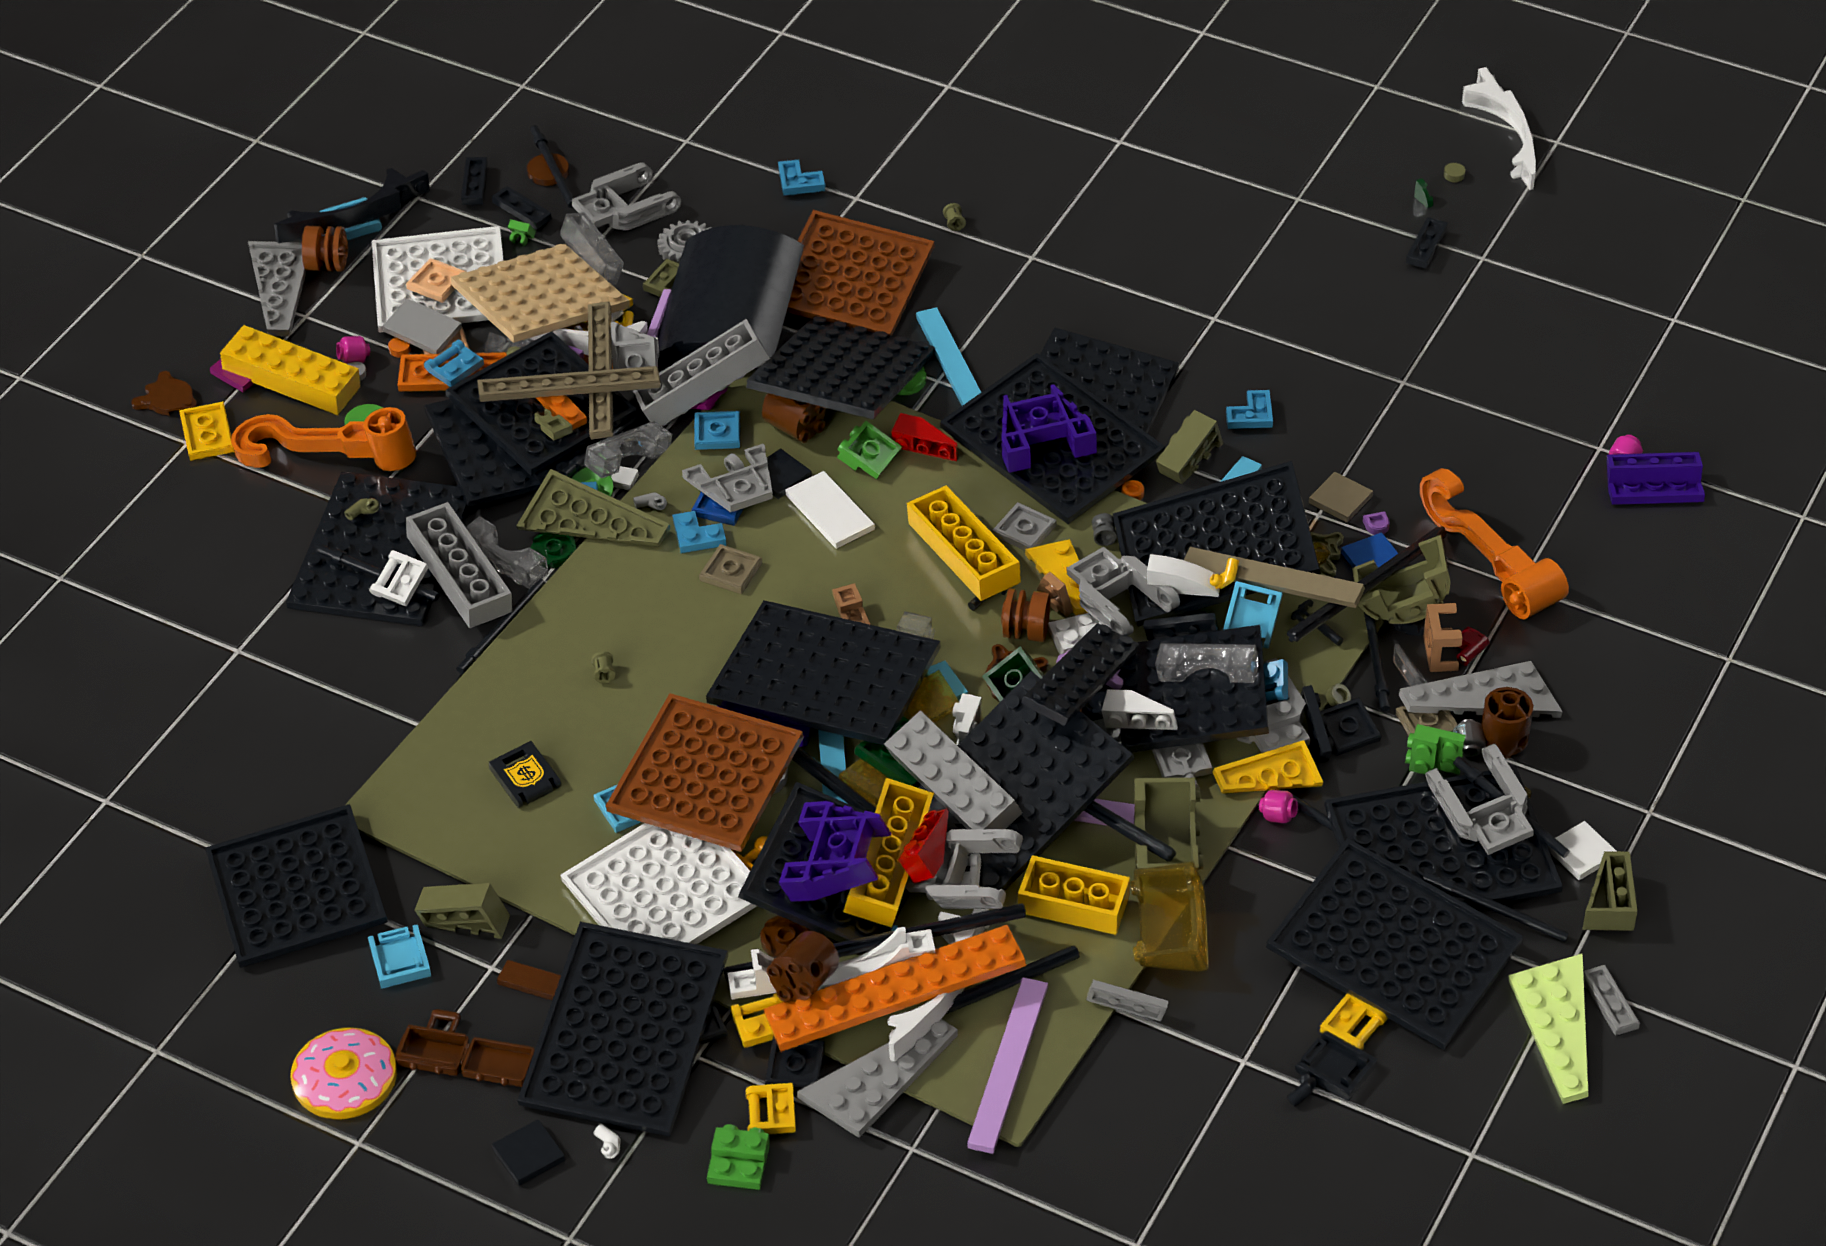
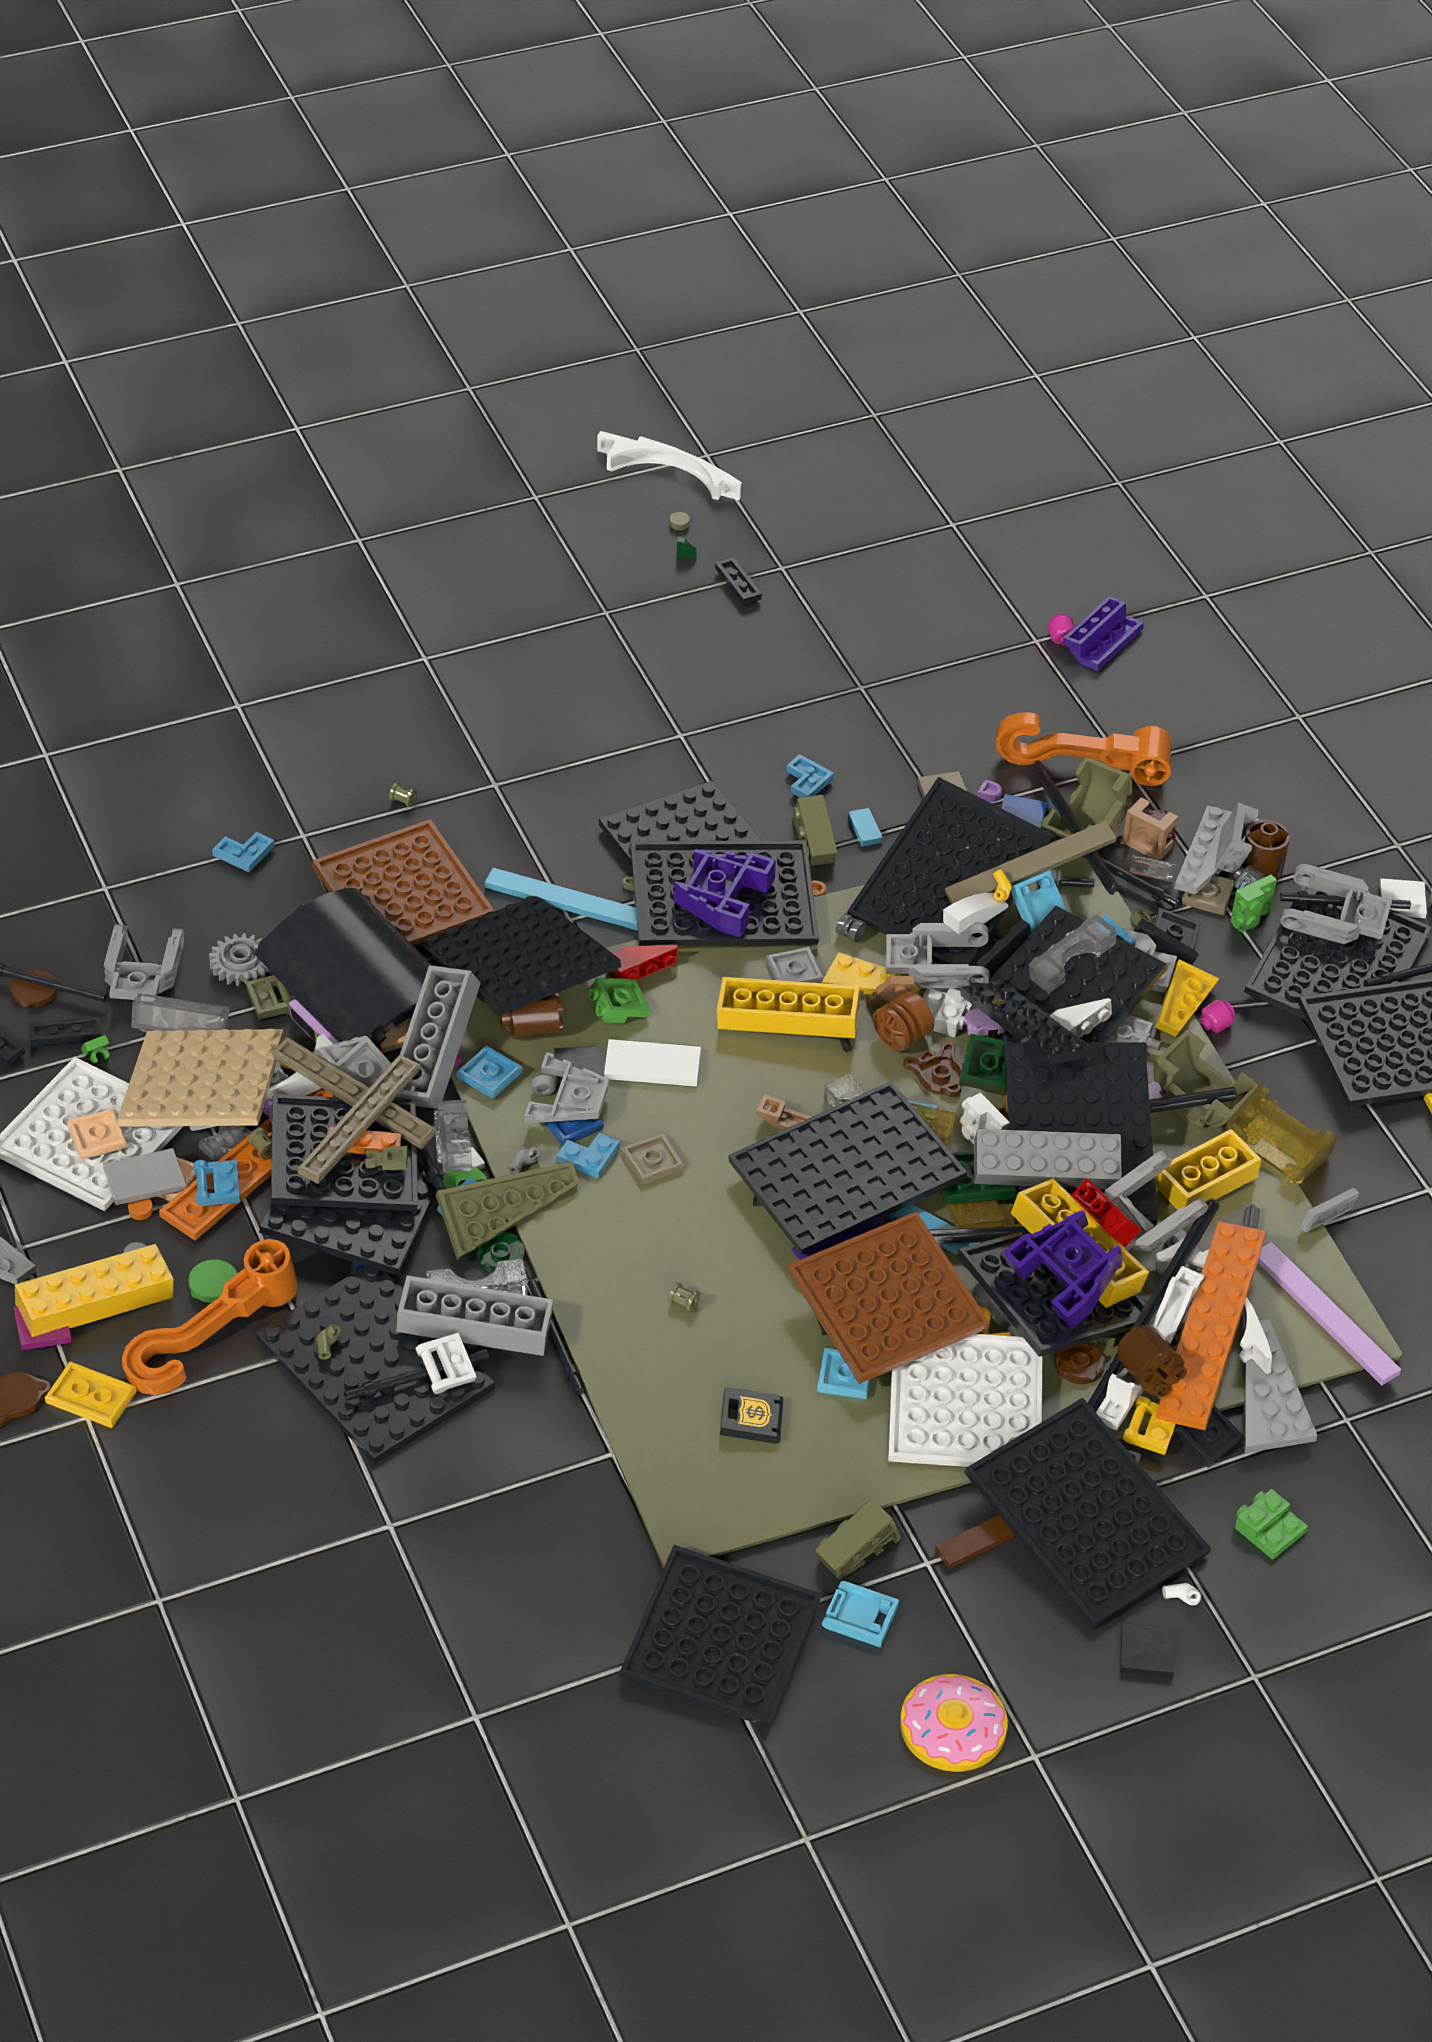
camera: 55 degrees left, 0 degrees up
(352, 349) = (113, 1238): dark pink head -> none
(447, 1051) = (1004, 1638): reddish brown piece -> none
(780, 1107) = (1243, 1469): yellow plate -> none
(1482, 684) = (1231, 849): none -> light grey panel

